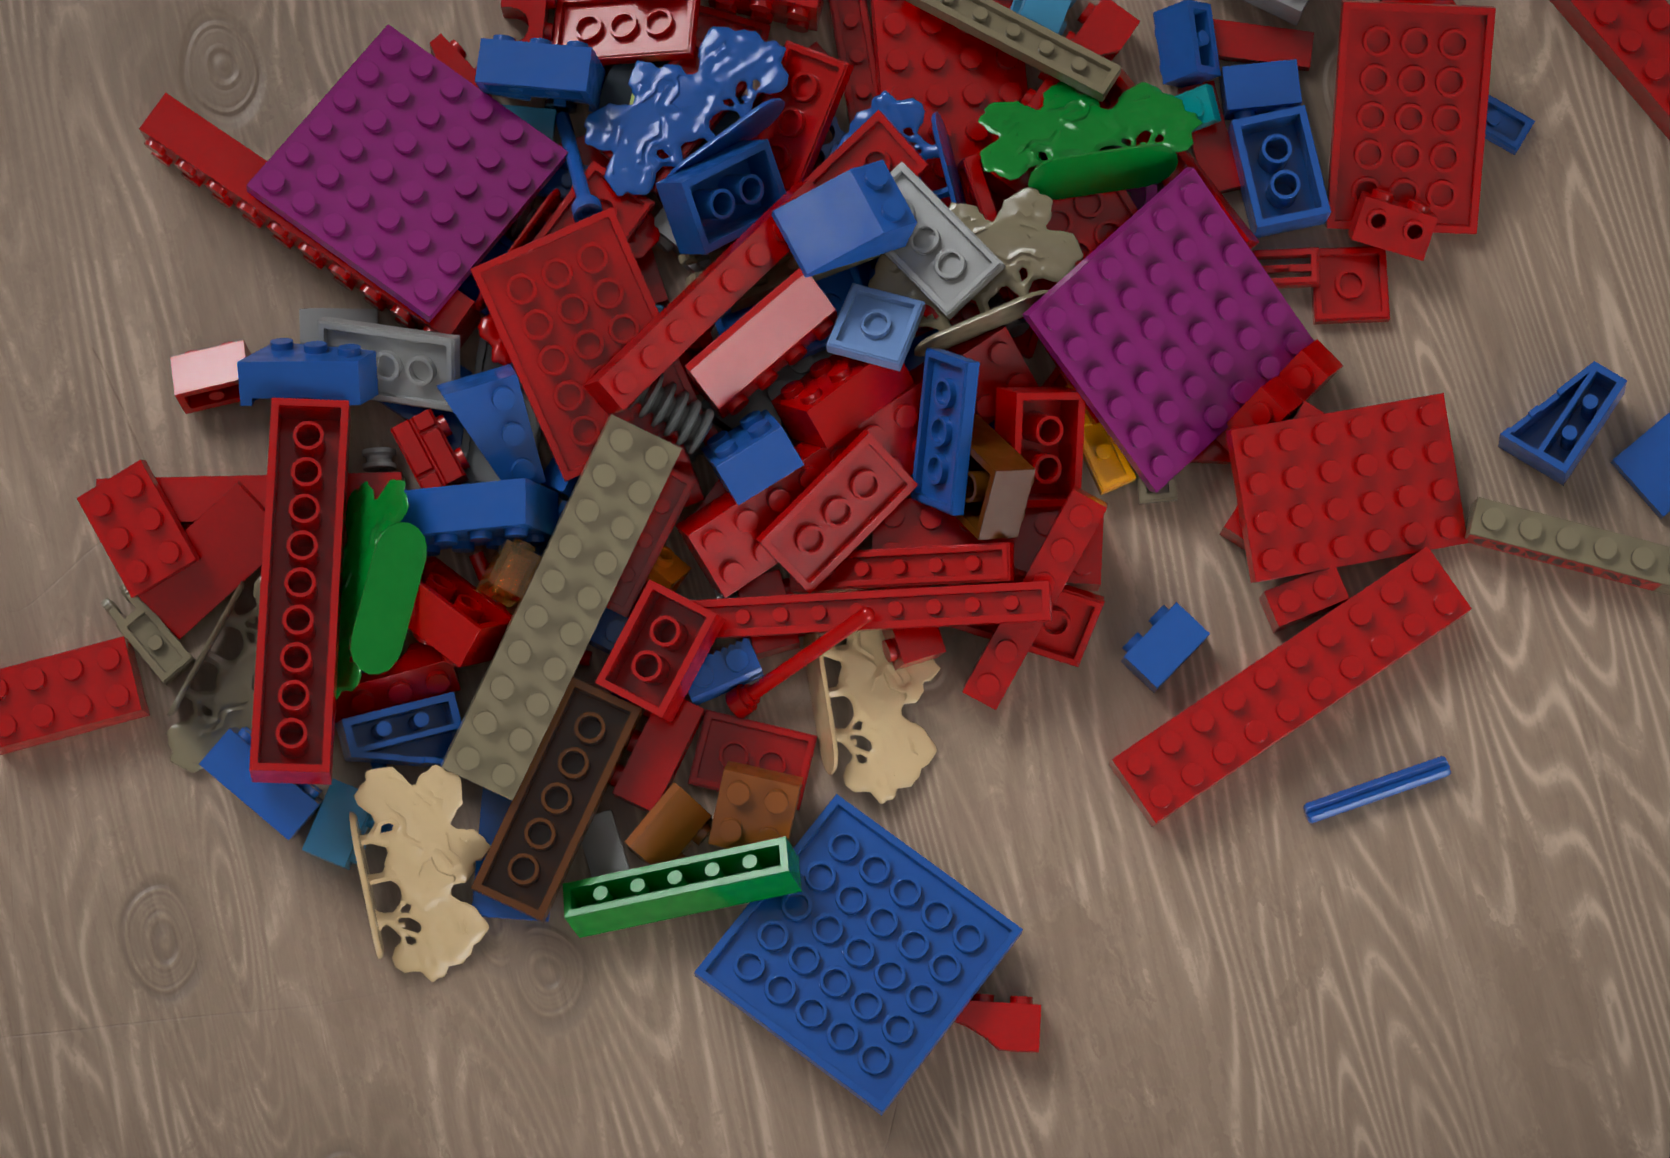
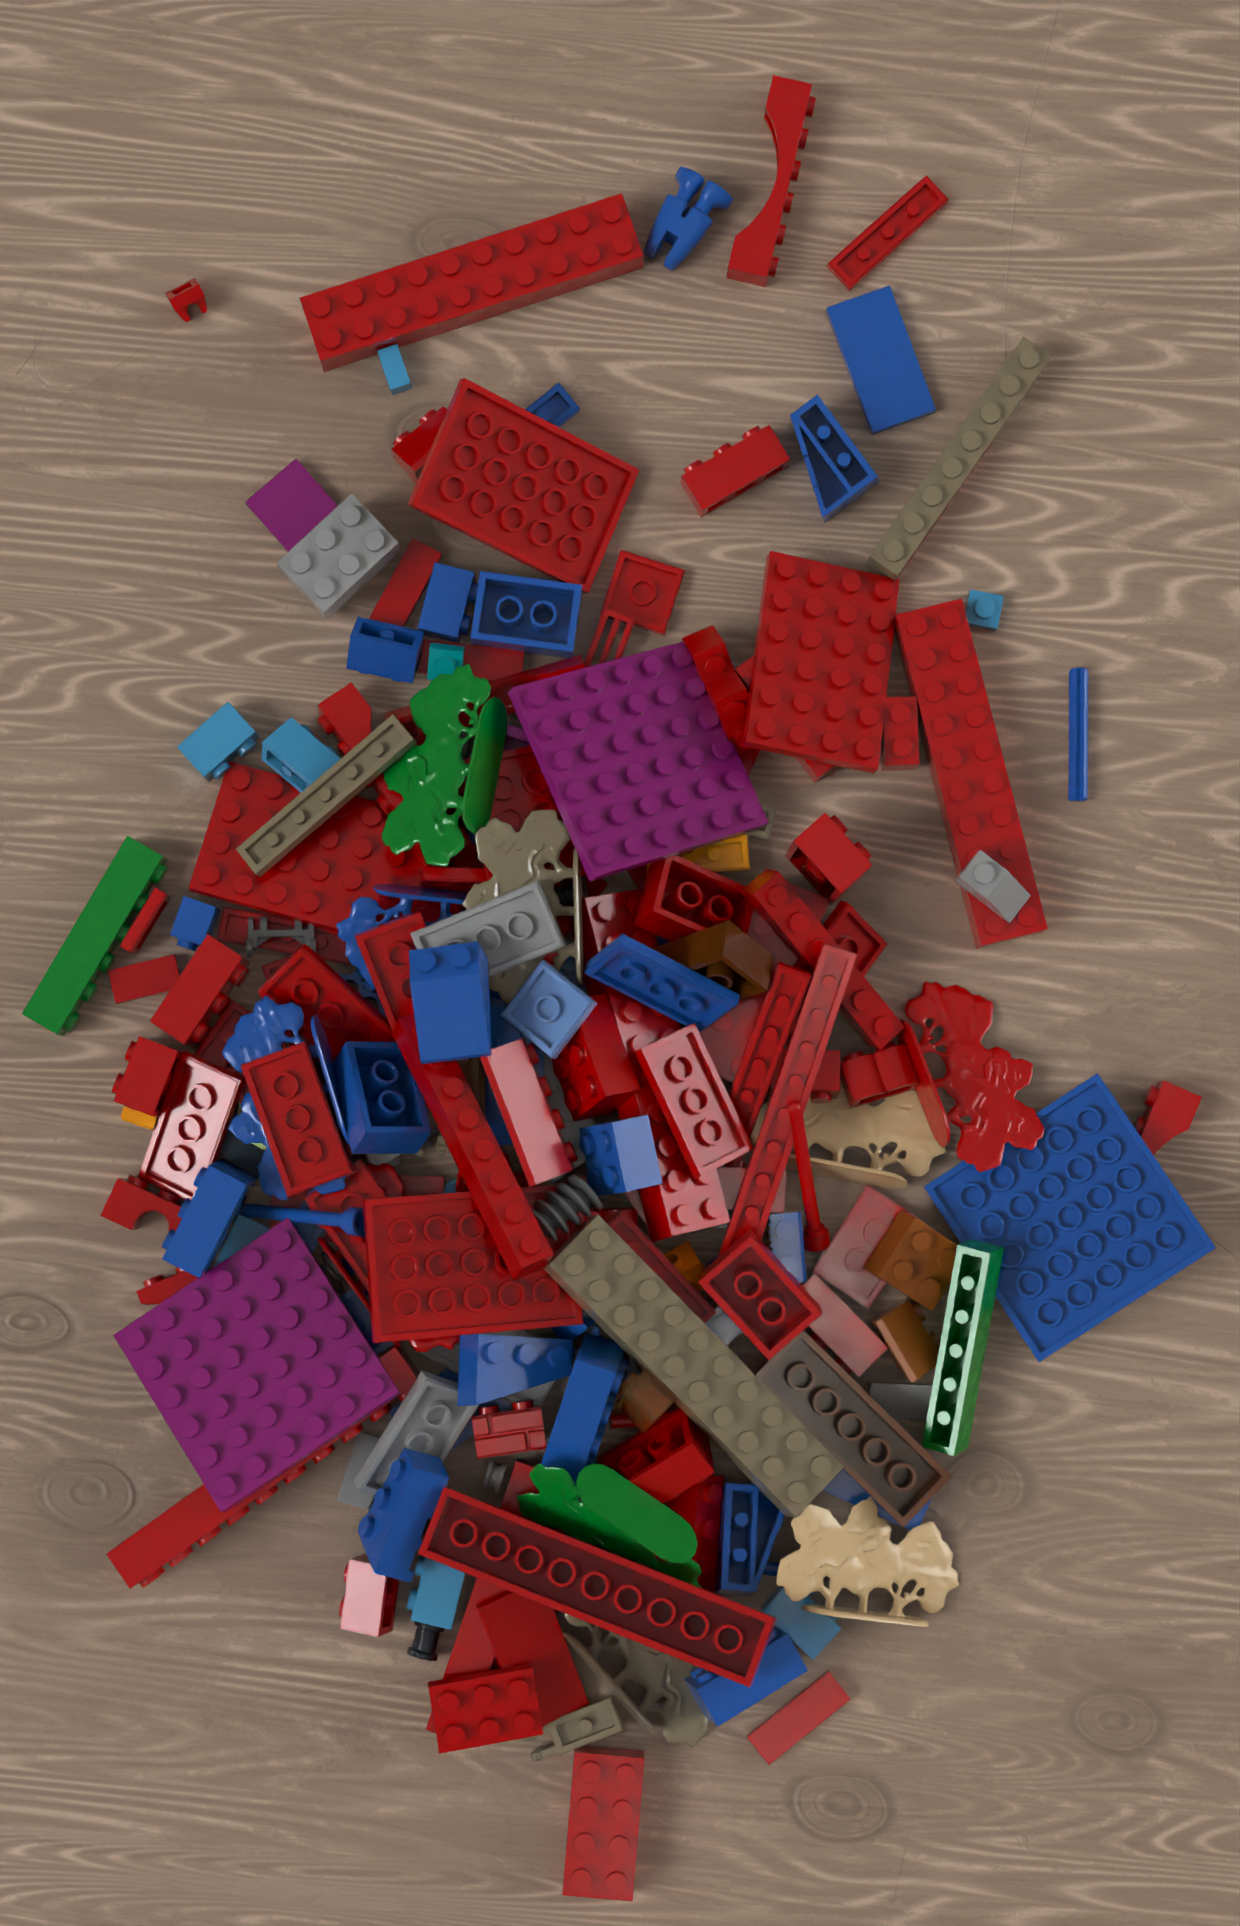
camera: 75 degrees left, 5 degrees up
(188, 450) = (425, 1642): none -> black bush
(237, 444) = (437, 1593): none -> dark azure brick
(237, 861) = (798, 1717): none -> red tile
(671, 122) = (297, 1118): none -> red tile
(843, 24) = (257, 937): none -> dark grey piece
(935, 702) = (877, 1074): none -> red brick
(970, 805) = (976, 1077): none -> red plant
(1142, 561) = (829, 857): none -> red brick
(1164, 646) = (897, 865): blue brick -> none
(1178, 744) = (993, 886): none -> light grey slope
(1393, 224) = (608, 536): red brick -> none
(1470, 643) = (983, 609): none -> dark azure plate
(1515, 330) = (734, 469): none -> red brick

